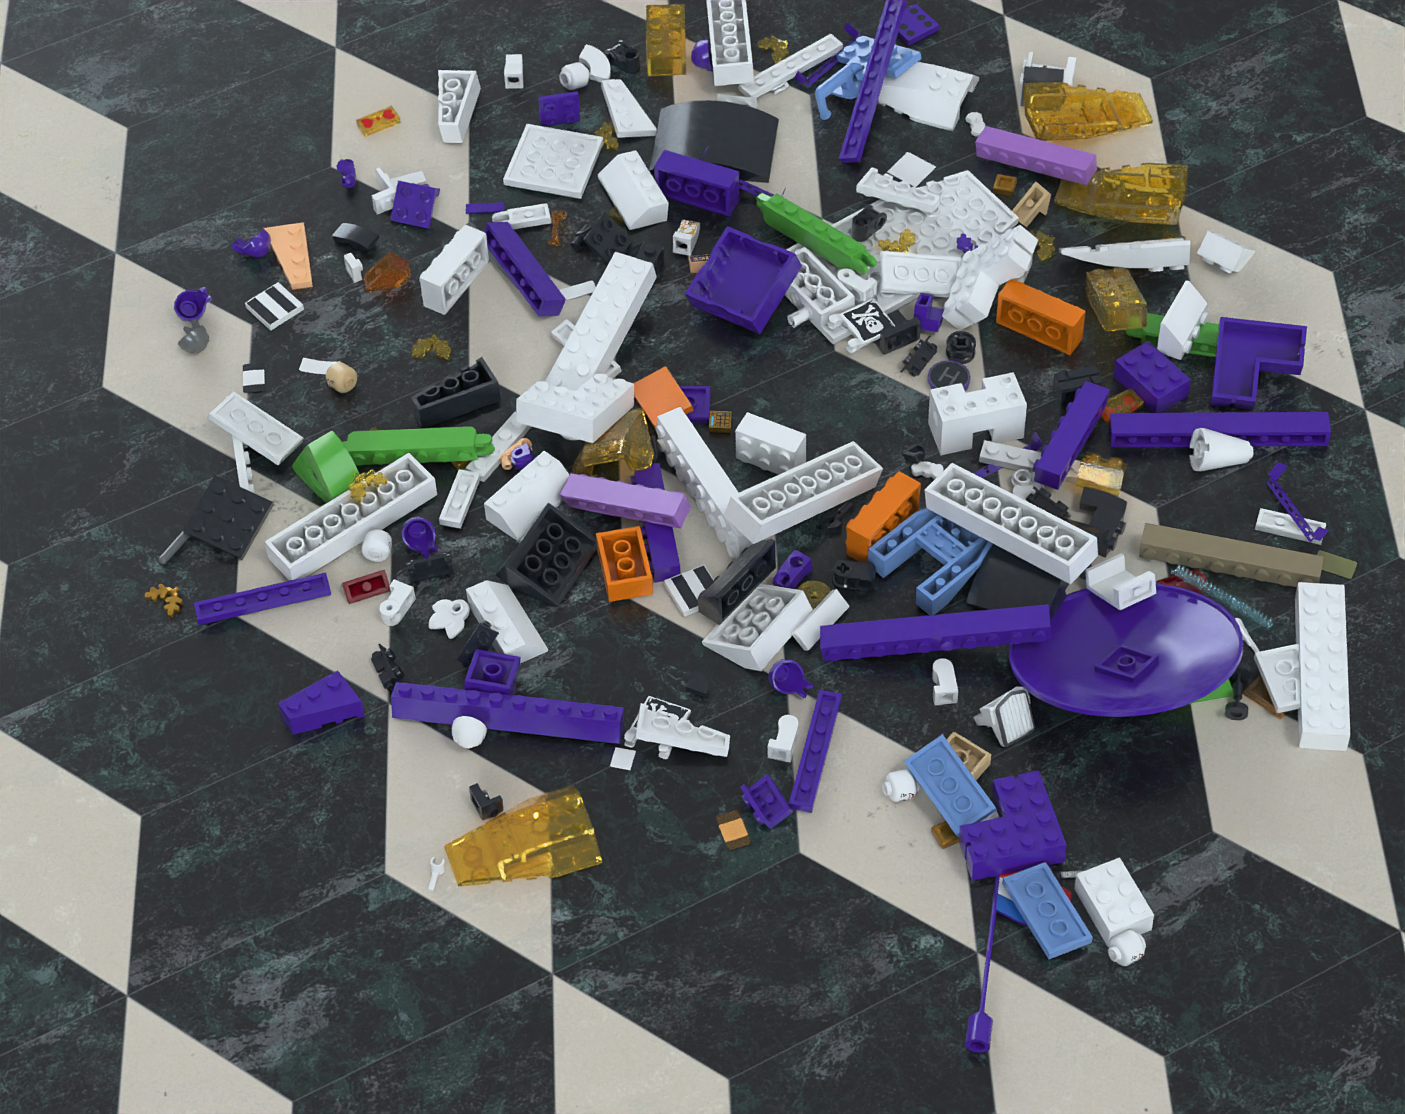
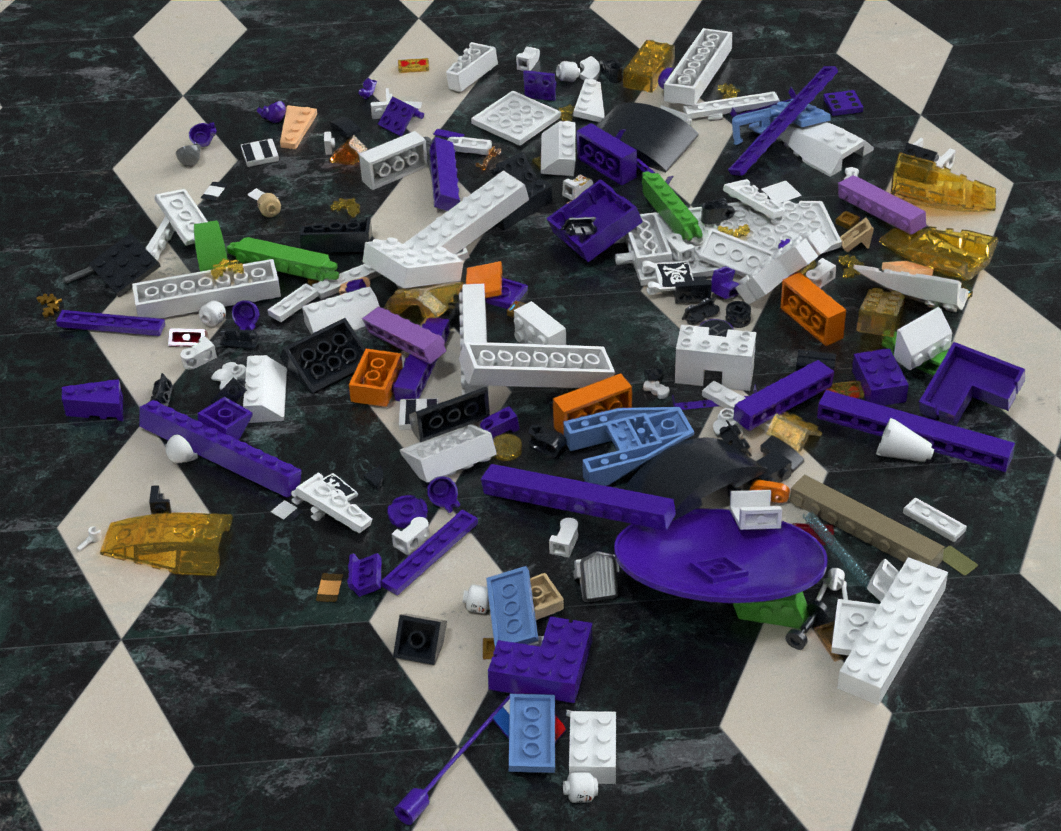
camera: 25 degrees right, 10 degrees down
(735, 294) = (577, 226): none -> black hinge
(758, 712) = (405, 509): none -> dark purple tile
(824, 614) = (509, 458): white tile -> none
(870, 852) = (419, 638): none -> black slope
(1011, 523) = (681, 433): white brick -> none
(1107, 232) = (907, 266): none -> light nougat plate
(1129, 549) = (779, 491): none -> orange plate
(1225, 252) = (998, 309): white slope -> none
(1275, 473) = (944, 475): dark purple piece -> none
(1281, 613) = (882, 579): none -> white slope

